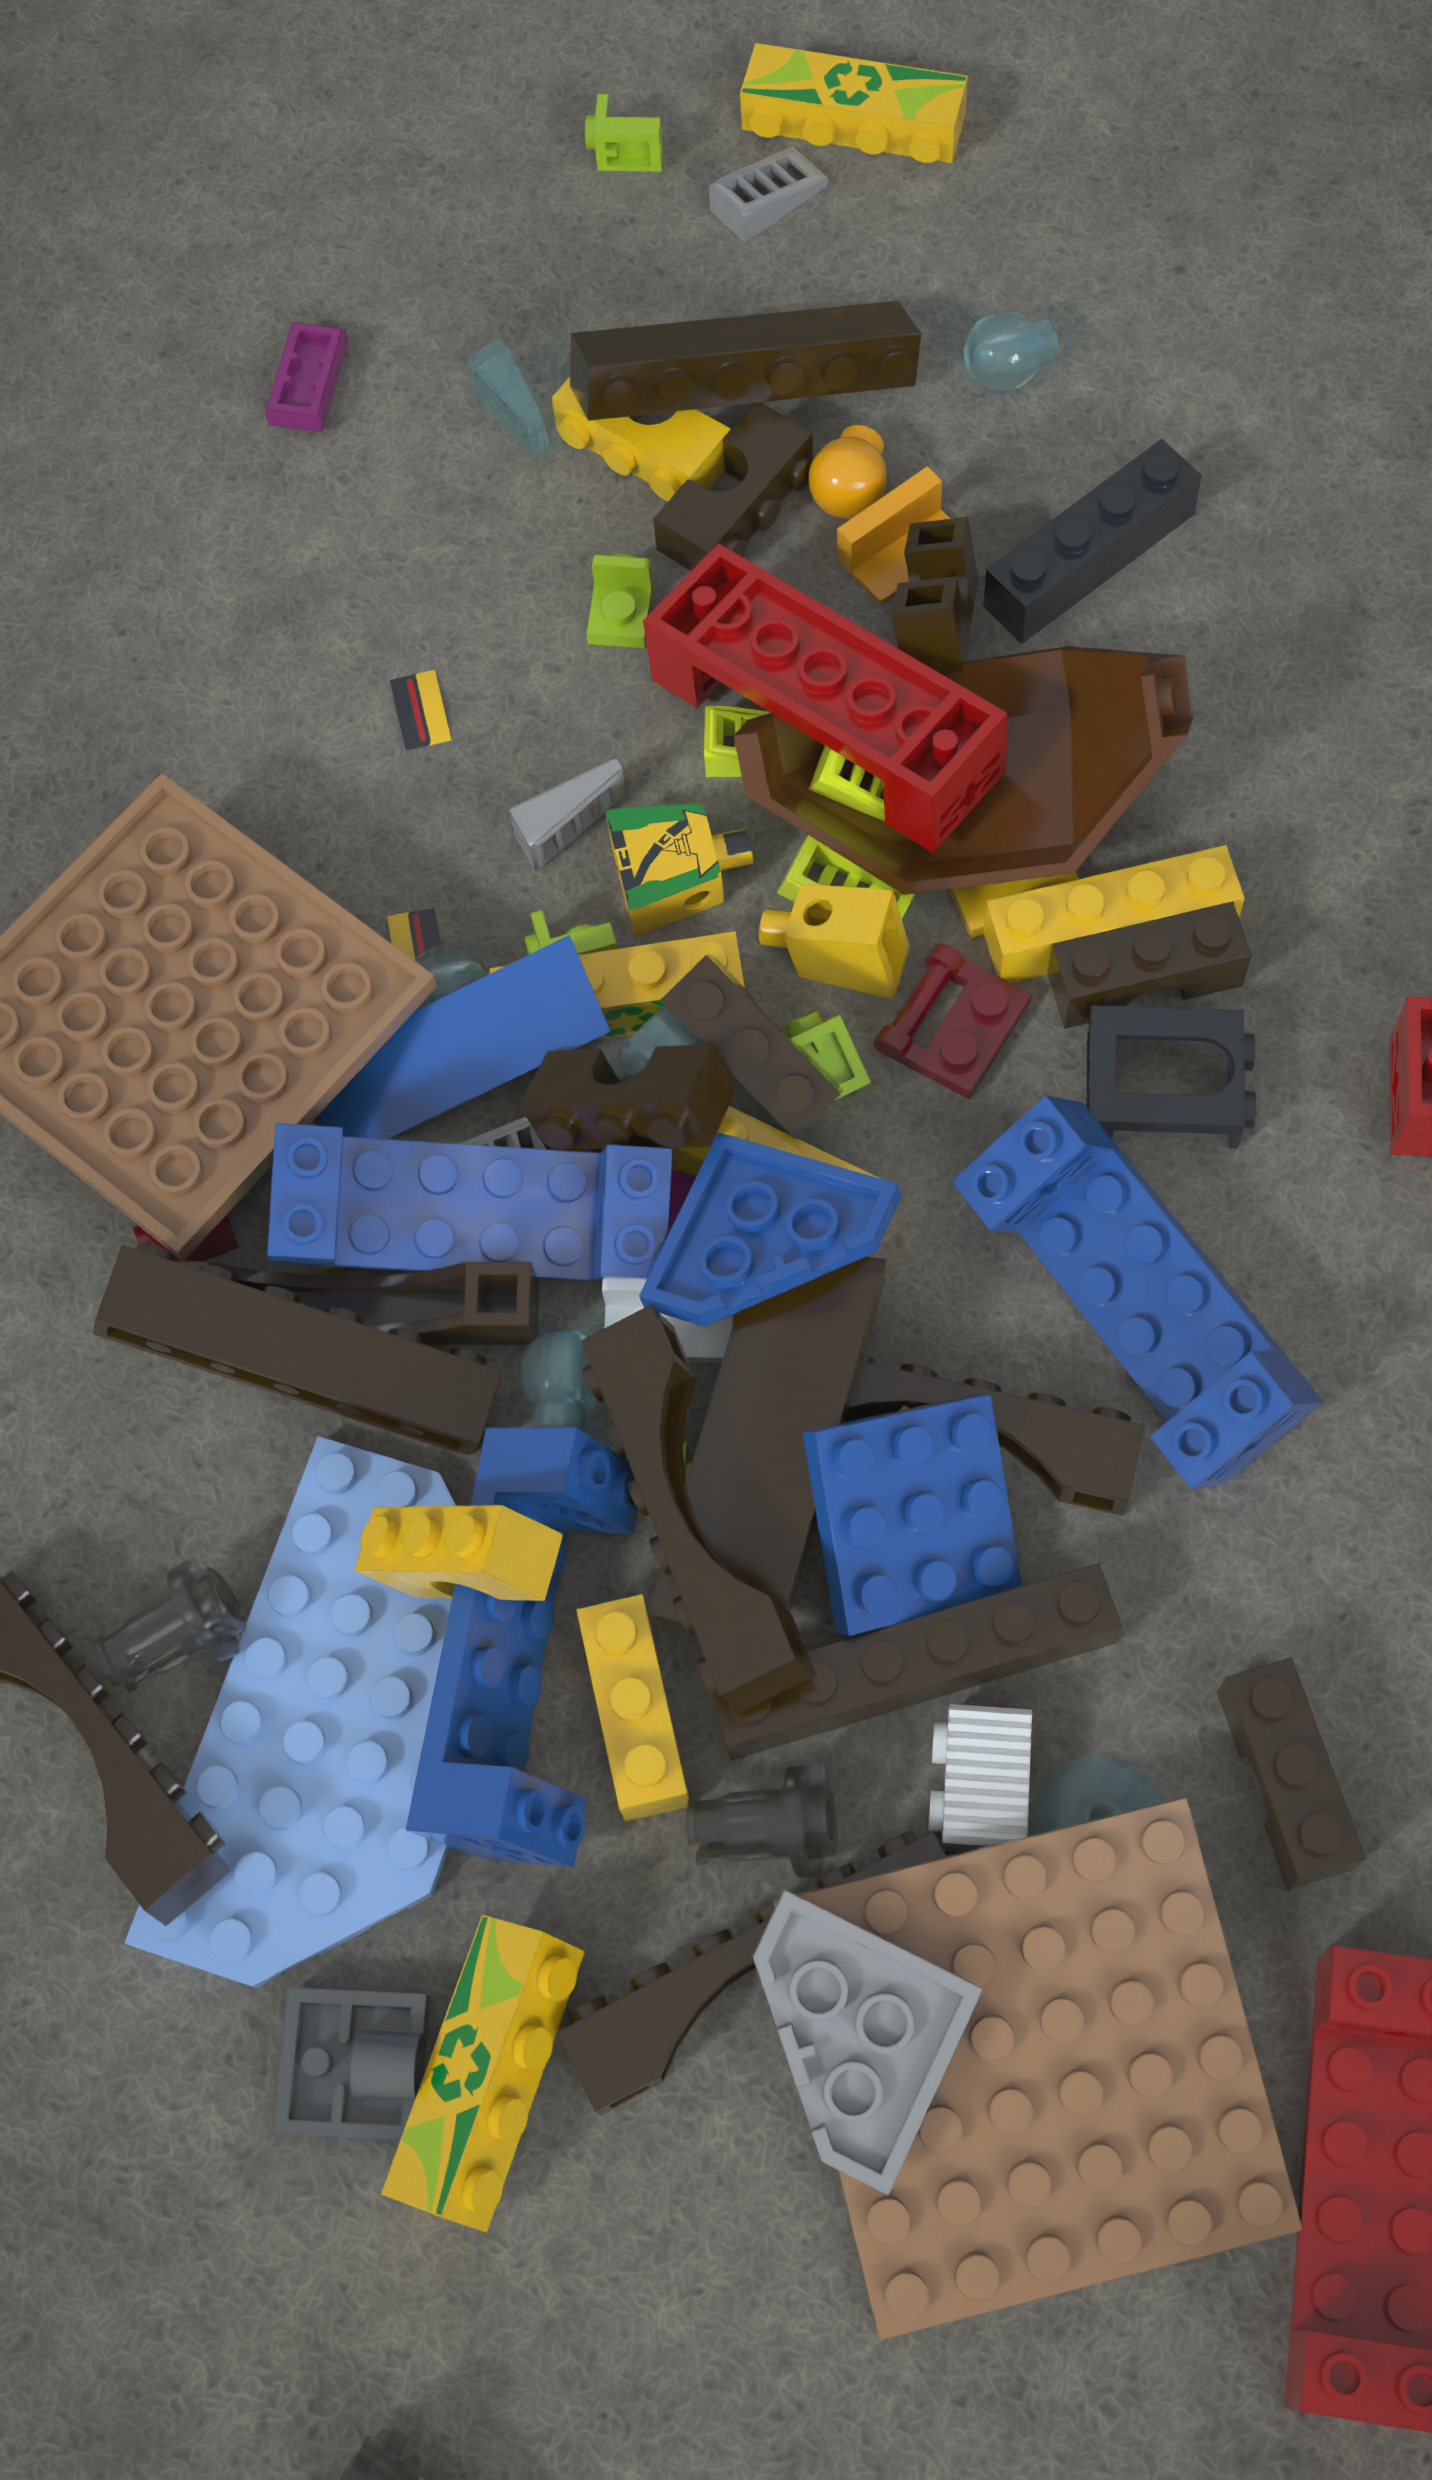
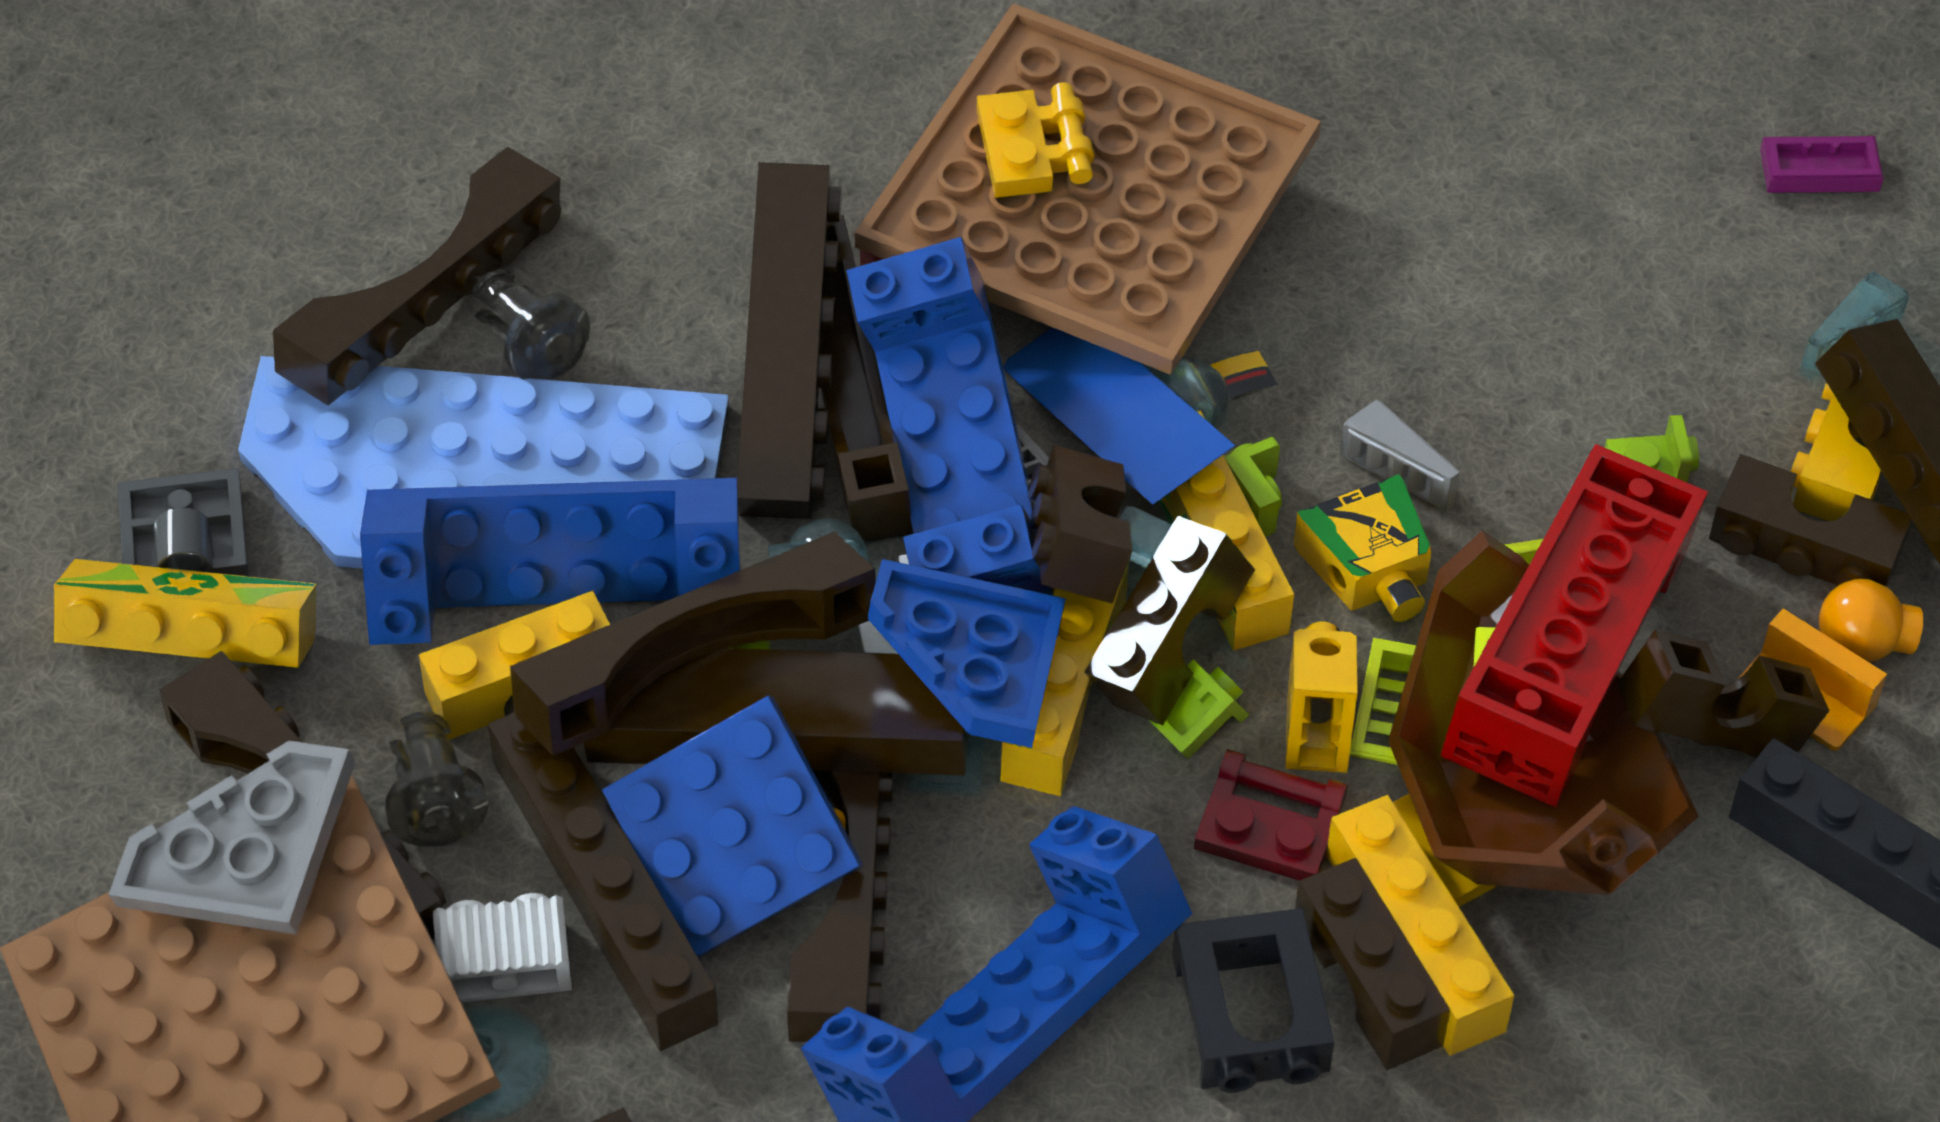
camera: 70 degrees right, 15 degrees down
(111, 1064) = (1016, 144): none -> yellow plate
(420, 710) = (1485, 331): sticker -> none
(473, 1546) = (609, 469): yellow arch -> none

